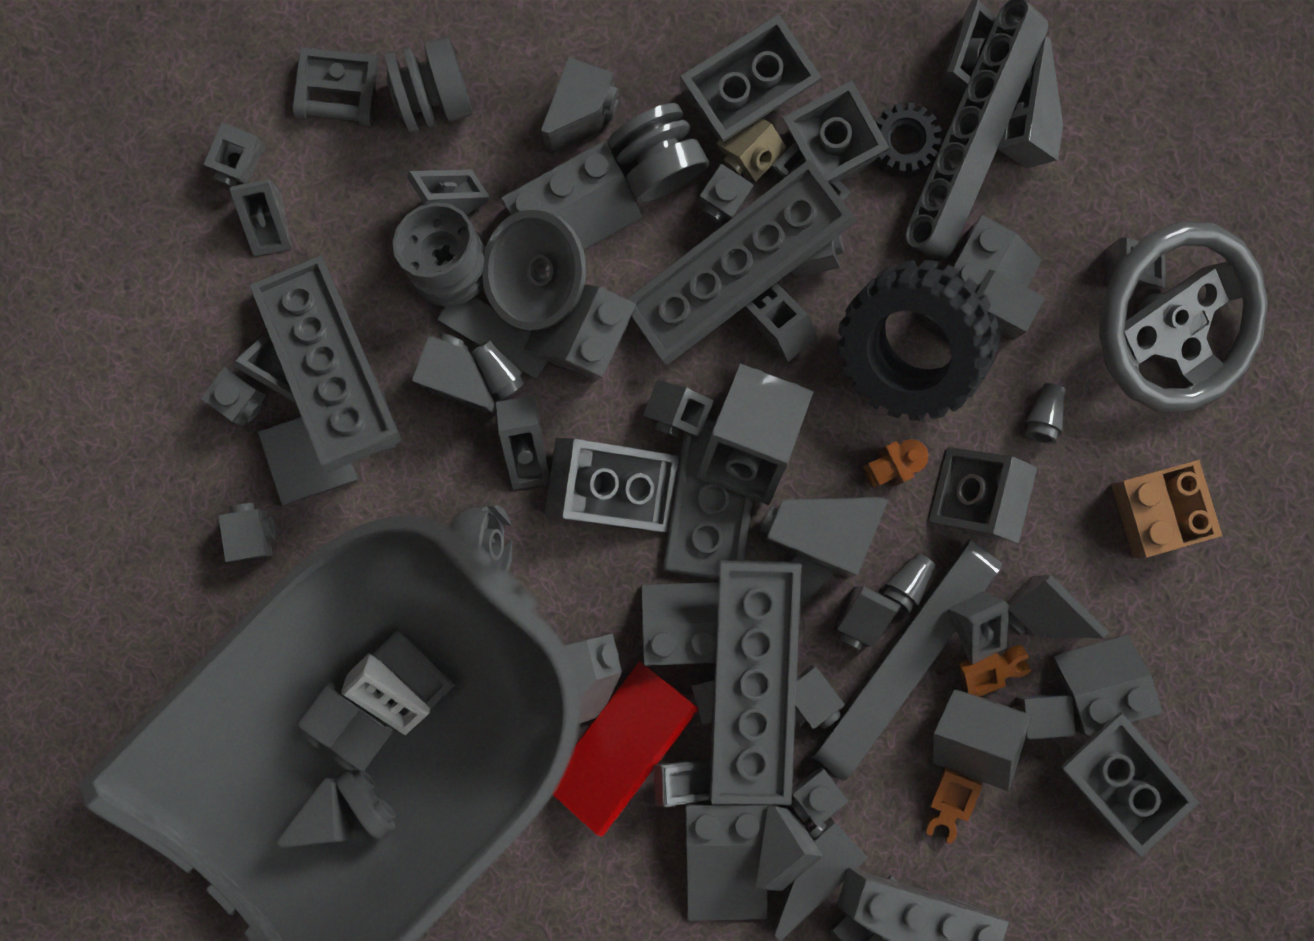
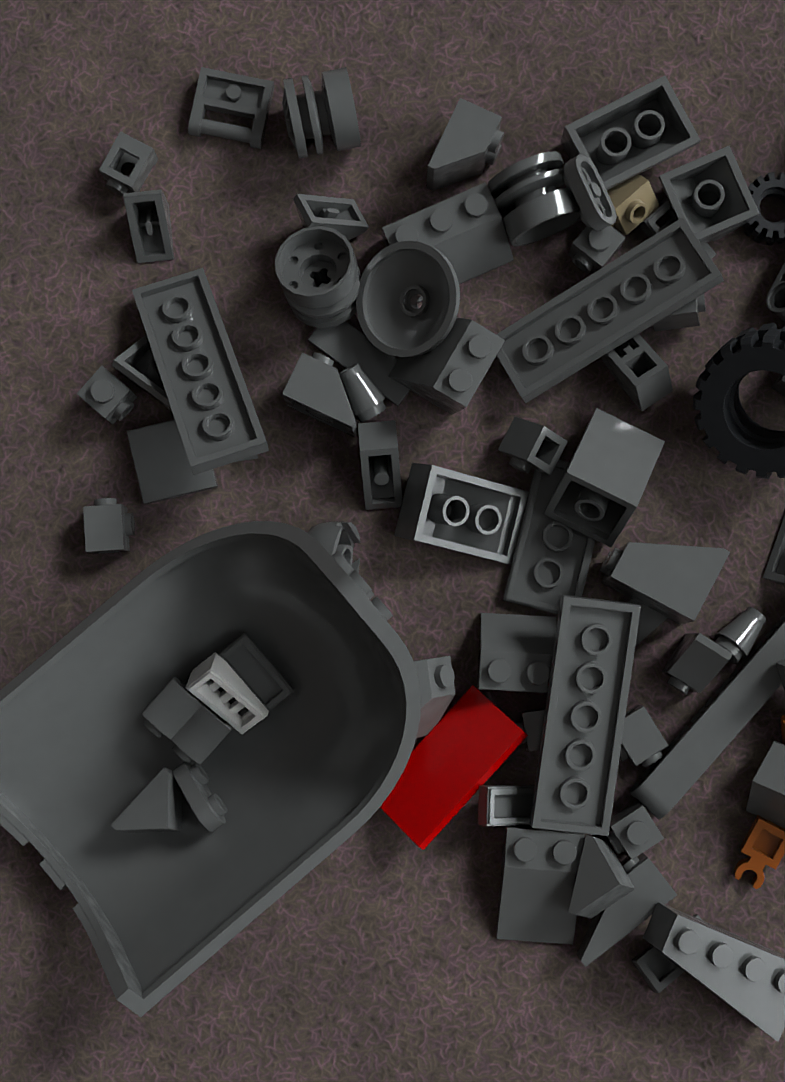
camera: 10 degrees right, 0 degrees up
(711, 142) = (590, 193): none -> dark grey plate
(897, 463) = (738, 518): dark orange hips -> none

